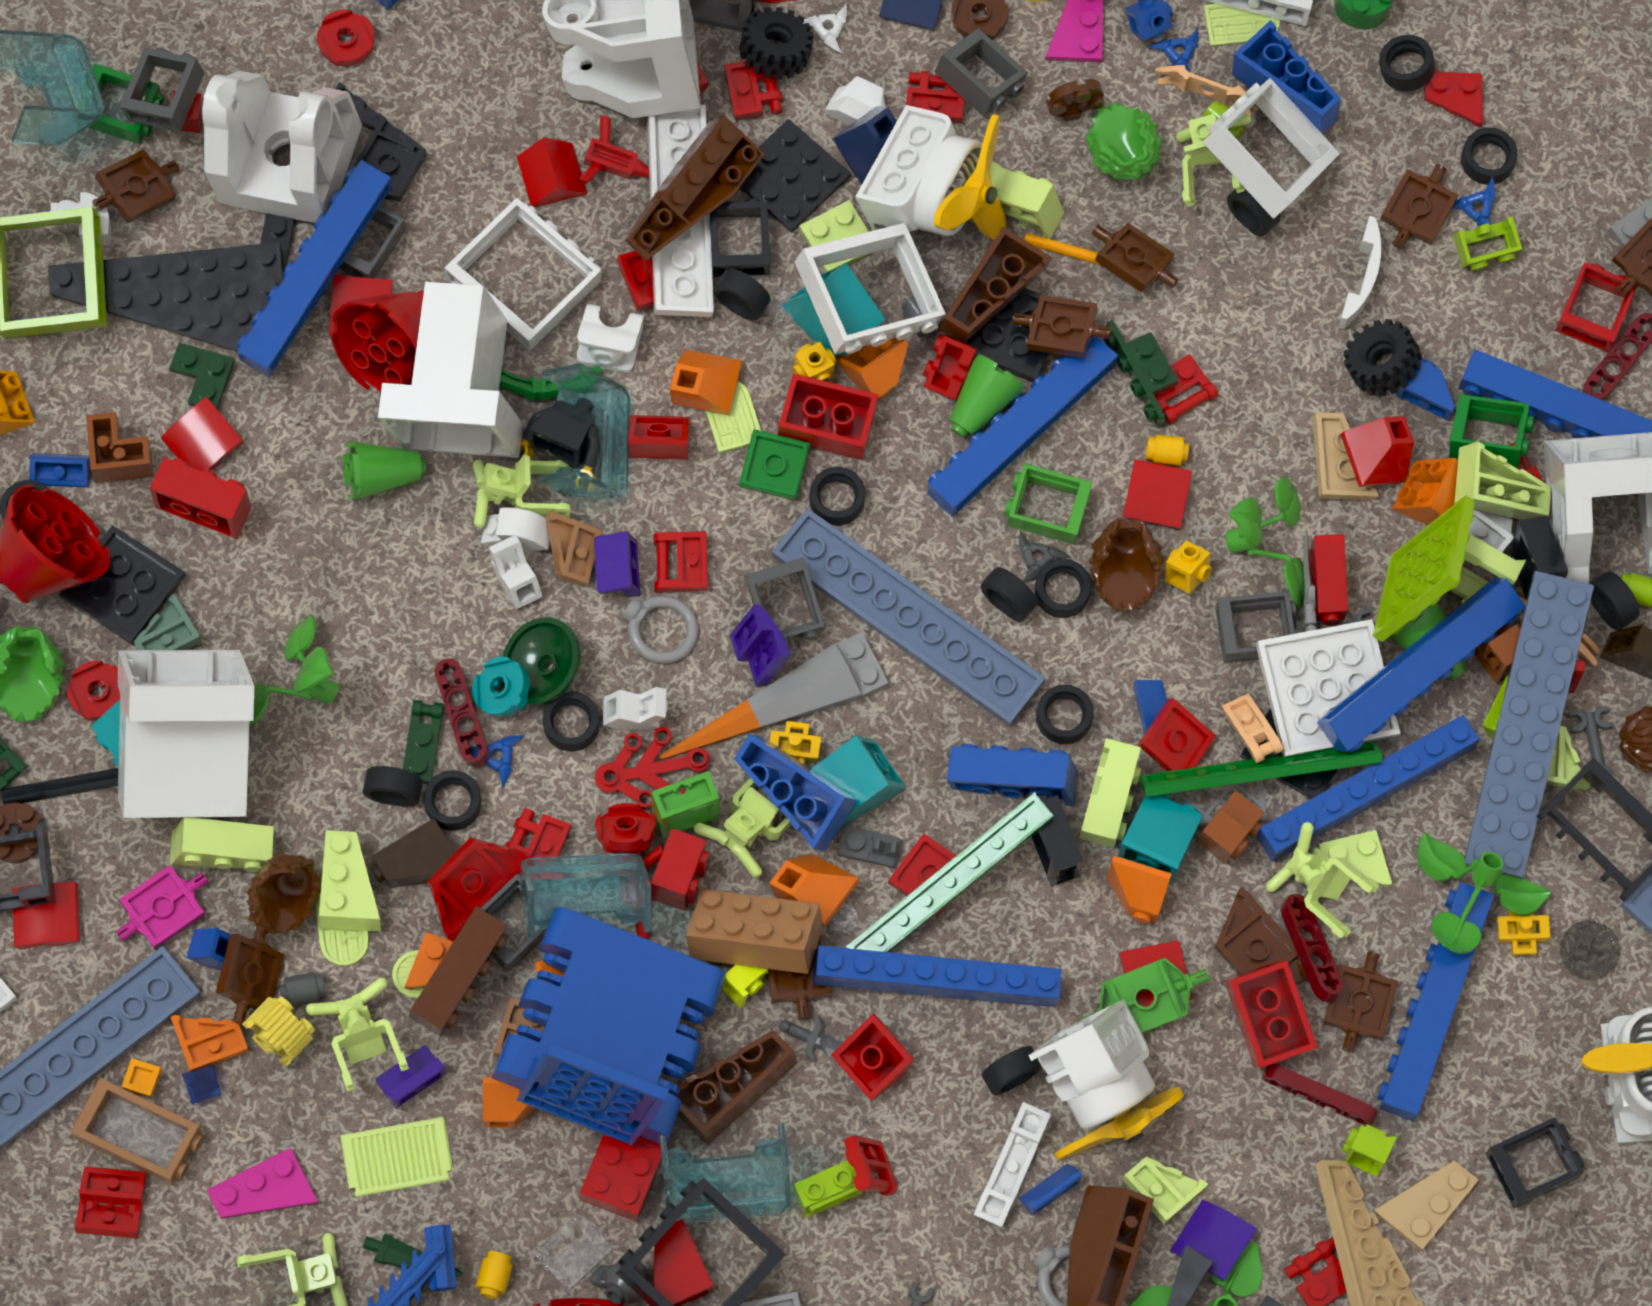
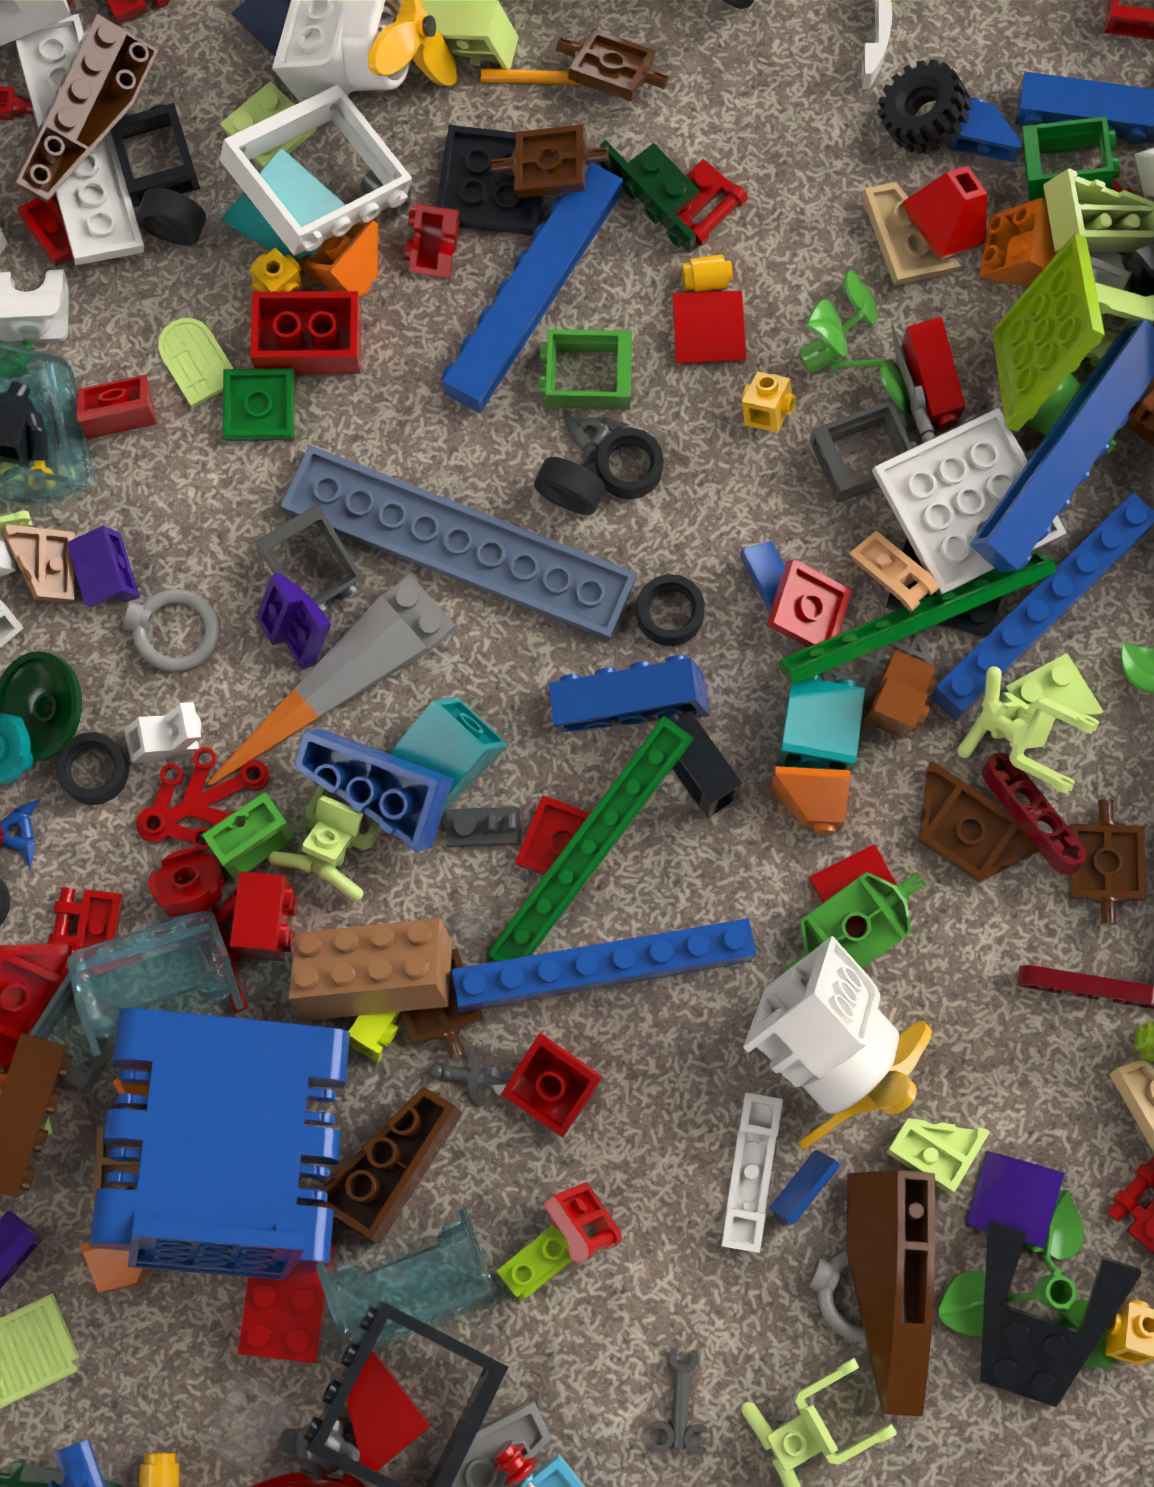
camera: 10 degrees left, 5 degrees up
(690, 561) = (188, 543): red plate -> none
(705, 381) = (153, 328): orange slope -> none
(793, 176) = (199, 70): black plate -> none
(797, 743) = (366, 726): yellow piece -> none
(814, 881) = (427, 890): orange slope -> none
(837, 474) = (340, 396): black tyre -> none
(983, 396) = (480, 263): bright green cone -> none
(996, 281) = (462, 126): reddish brown wedge -> none
(1011, 1070) = (720, 1058): black tyre -> none
(1111, 793) = (750, 690): yellowish green wedge -> none
(1126, 564) = (696, 416): reddish brown hair -> none
(1270, 1013) = (1009, 907): red brick -> none

